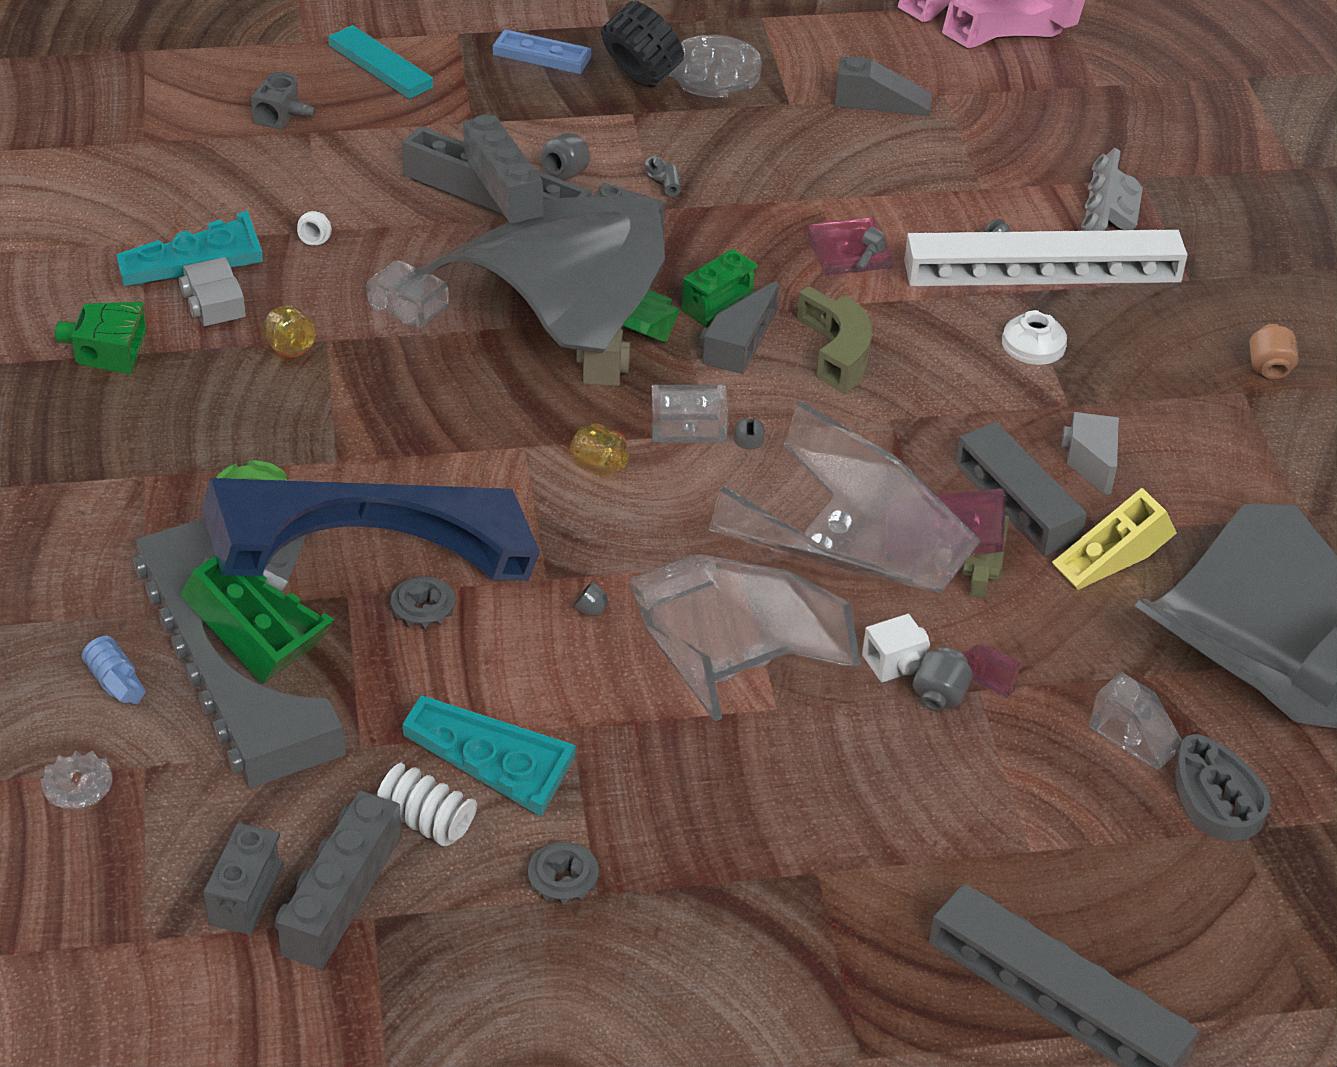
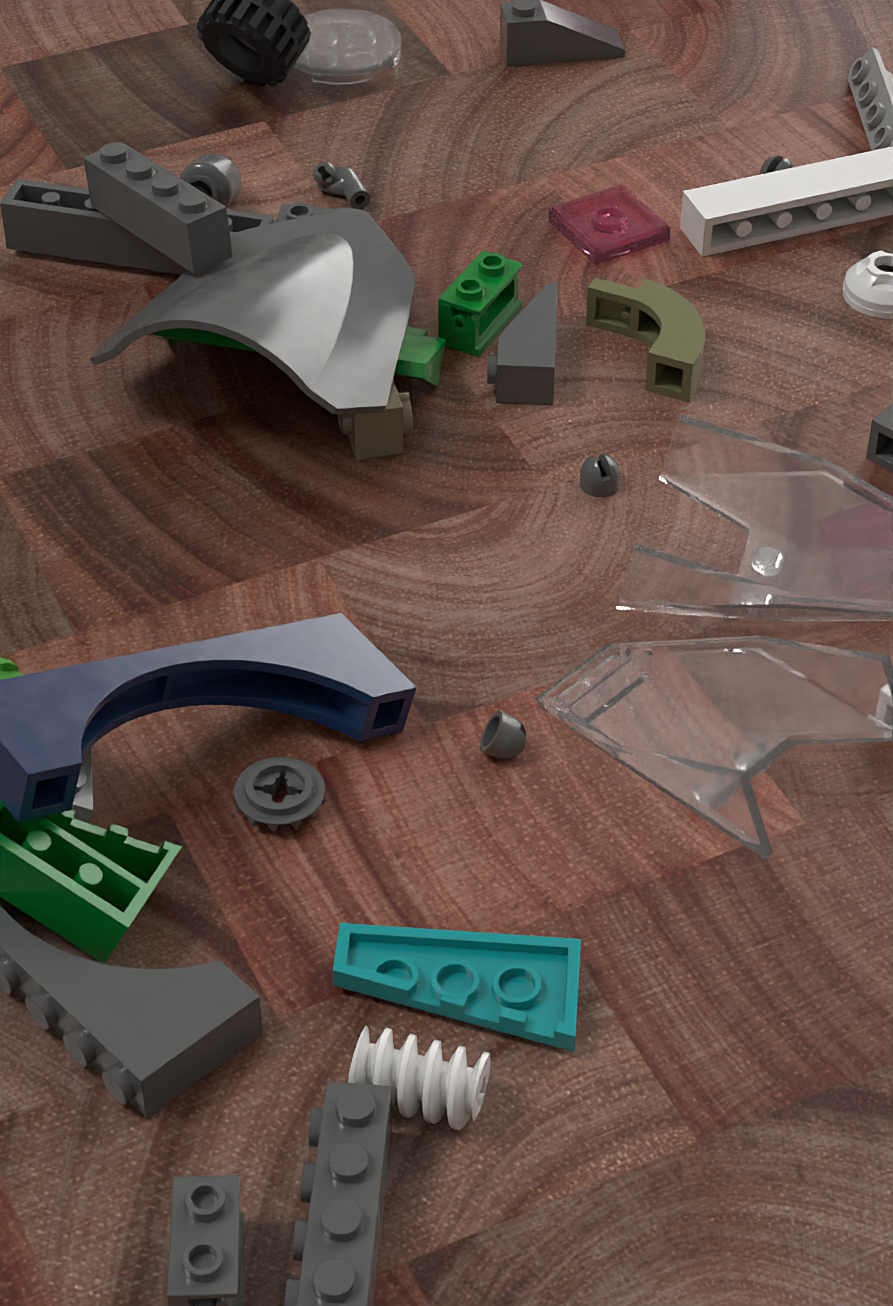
camera: 15 degrees left, 0 degrees up
(406, 295) = (81, 394): clear brick -> none
(542, 51) = (118, 68): medium blue tile -> none
(555, 859) = (617, 1113): dark grey gear -> none
(599, 450) = (424, 539): clear yellow head -> none
(689, 413) = (516, 466): clear brick -> none
(874, 241) = (643, 210): dark grey hand -> none

